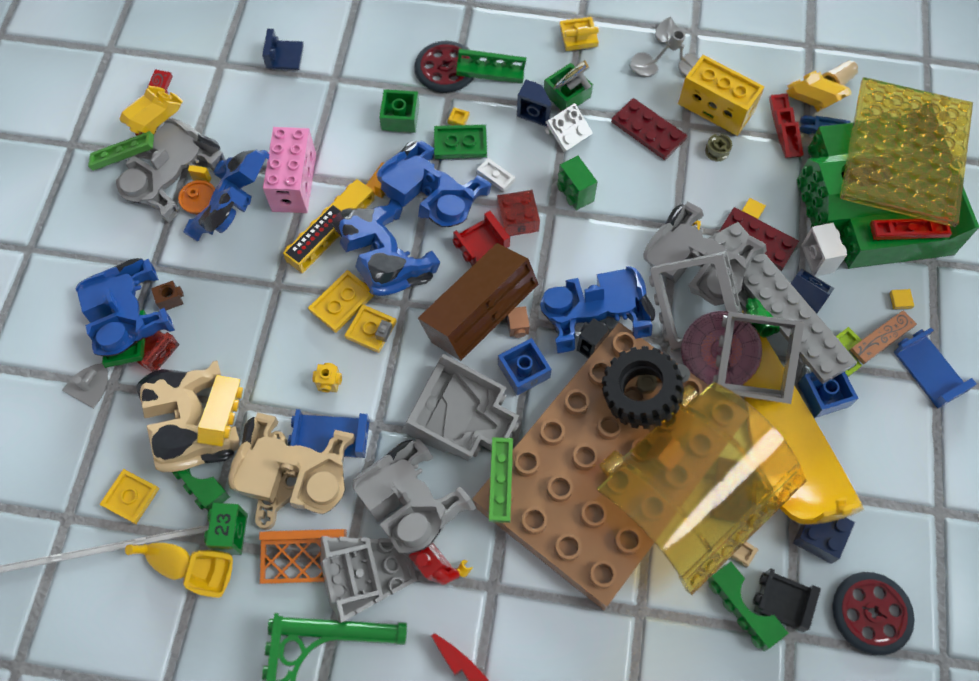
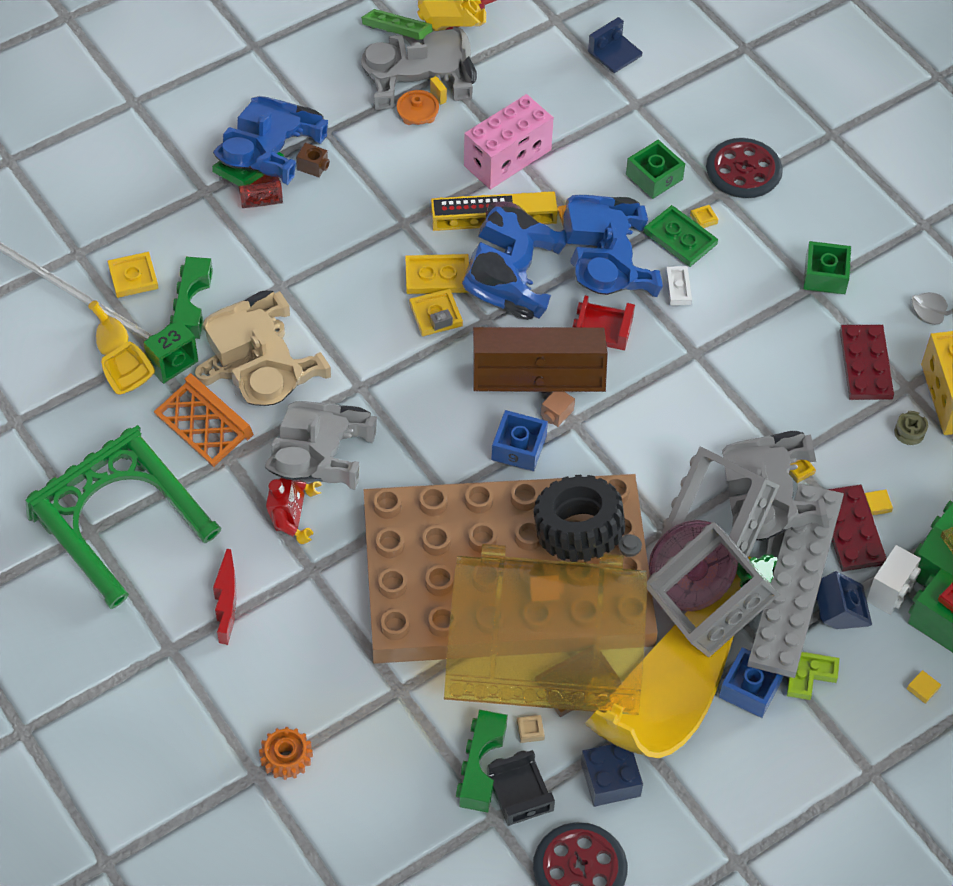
camera: 45 degrees right, 10 degrees down
(88, 384) = (189, 176): light grey shield -> none
(175, 441) = (213, 265): tan animal -> none
(219, 411) = (254, 265): yellow brick -> none
(234, 174) = (437, 118): blue animal -> none
(316, 432) = (306, 341): blue panel -> none
(327, 378) = (360, 317): yellow brick -> none
(362, 572) = (230, 465): light grey wedge -> none
(460, 411) = (430, 427): light grey panel -> none
(490, 68) = (779, 198): green fence -> none
(501, 480) = (396, 487): bright green plate -> none
(518, 212) = (658, 328): clear red brick -> none
(533, 103) = (777, 252): dark blue slope -> none
(568, 127) = (789, 299): white plate -> none
(576, 76) = (837, 262): shield -> none
(576, 183) = (735, 344): green brick -> none
(579, 33) = (899, 233): yellow plate -> none
(591, 337) = (599, 461): black brick -> none
(615, 295) = (625, 439): blue animal -> none
(883, 337) = (861, 693): nougat slope -> none
(931, 369) = (877, 758): blue panel -> none

